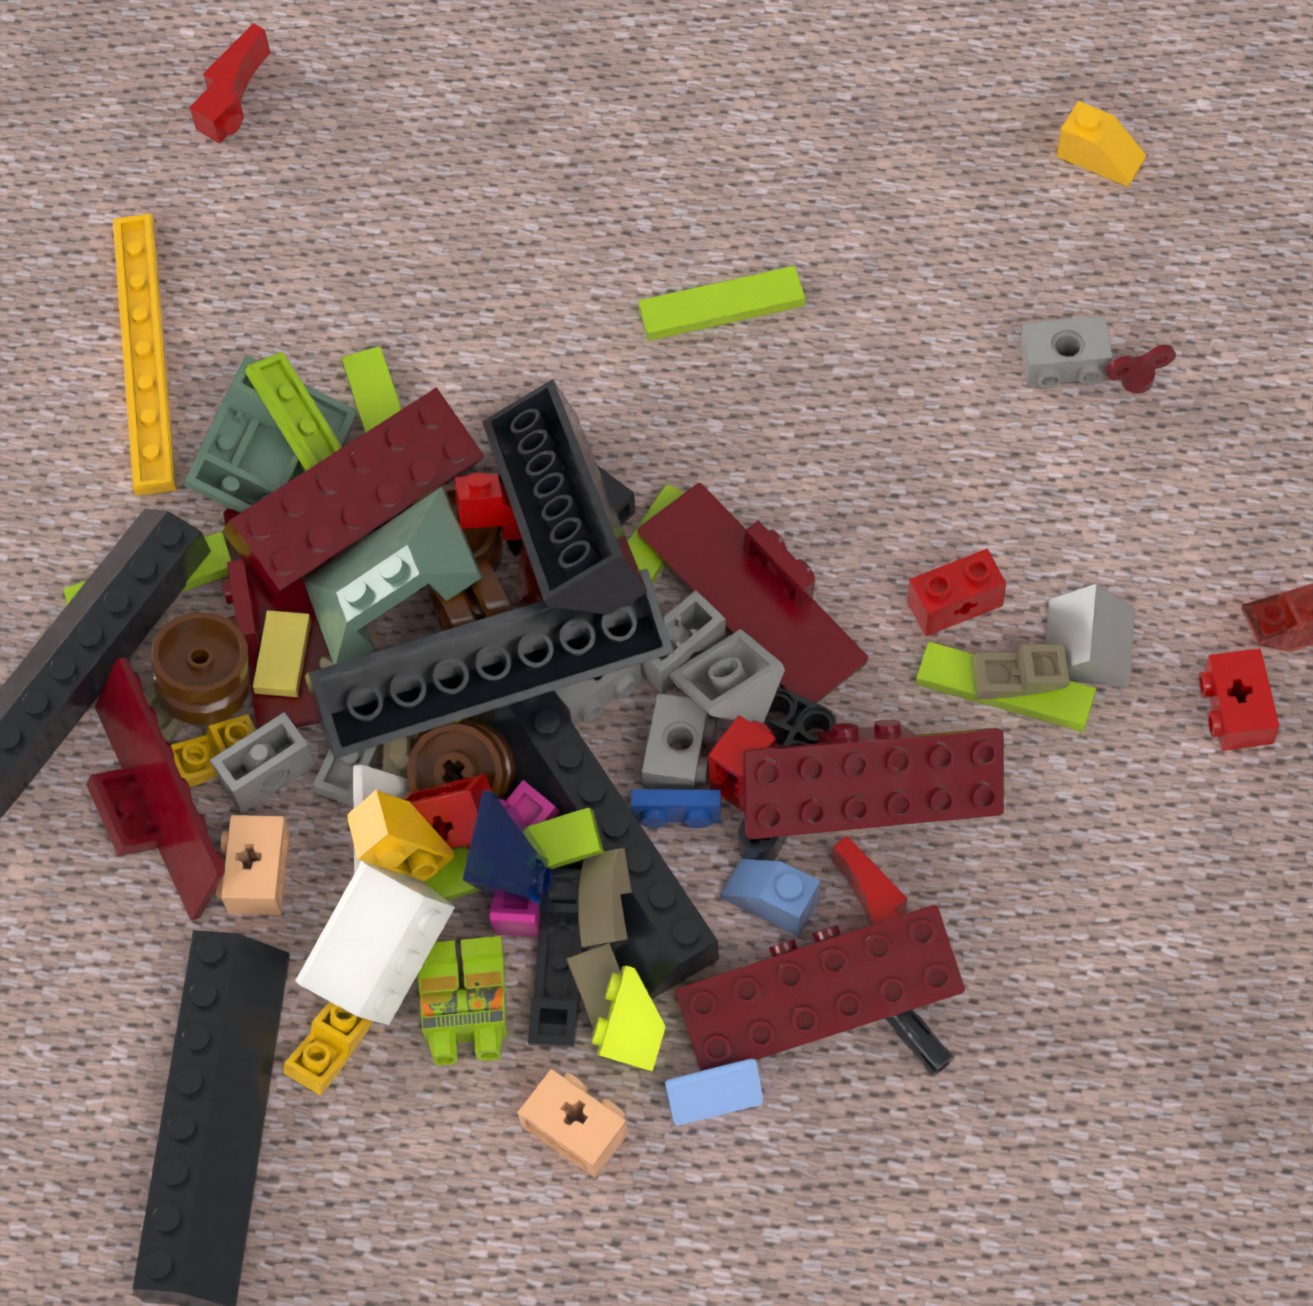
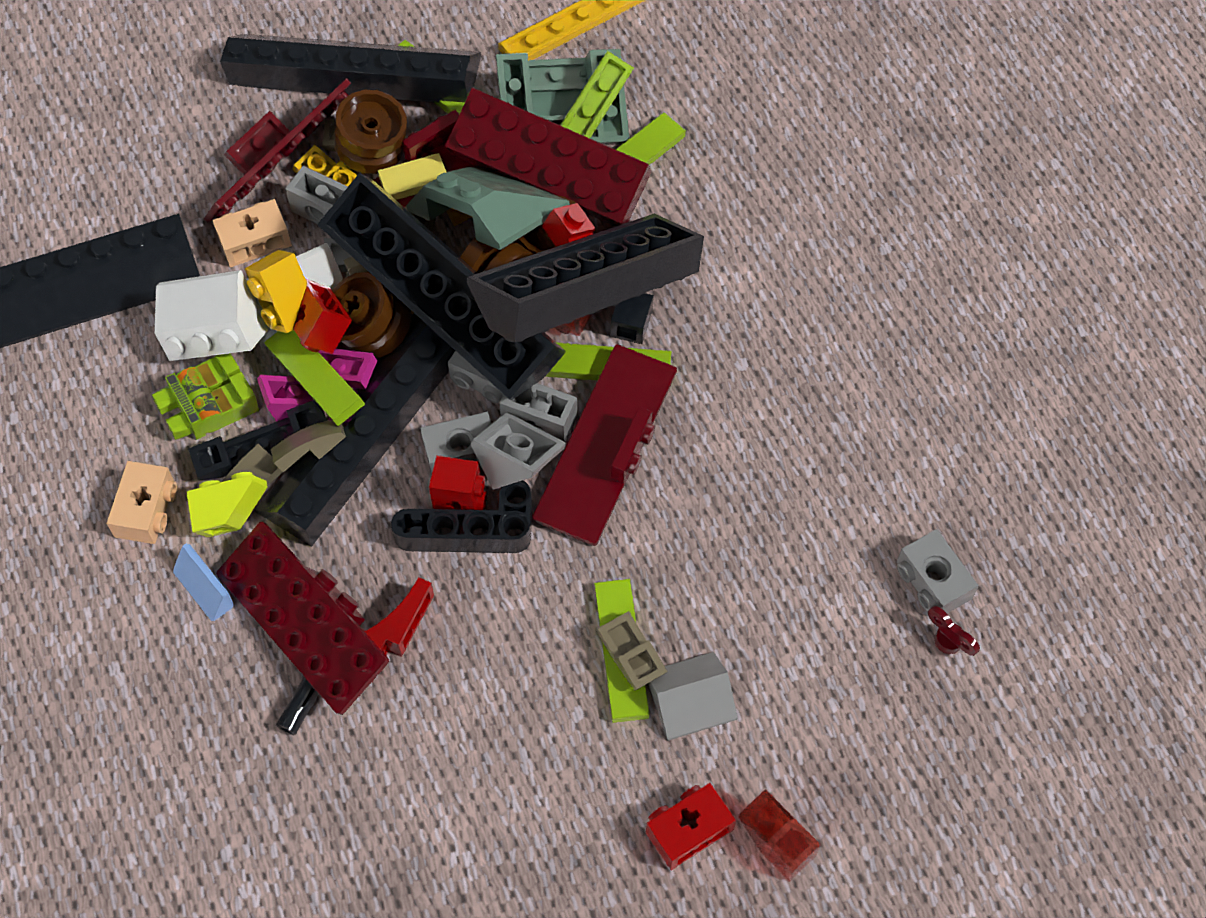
camera: 60 degrees right, 0 degrees up
(327, 1048) = (134, 334): yellow slope -> none
(505, 855) = (296, 356): clear blue slope -> none
(663, 806) = (415, 477): blue plate -> none
(721, 303) = (846, 325): lime tile -> none
(773, 893) = (370, 559): medium blue slope -> none
(872, 780) = (482, 579): dark red bracket -> none
(956, 592) = (677, 579): red brick -> none
(1100, 144) = (1145, 524): yellow slope -> none

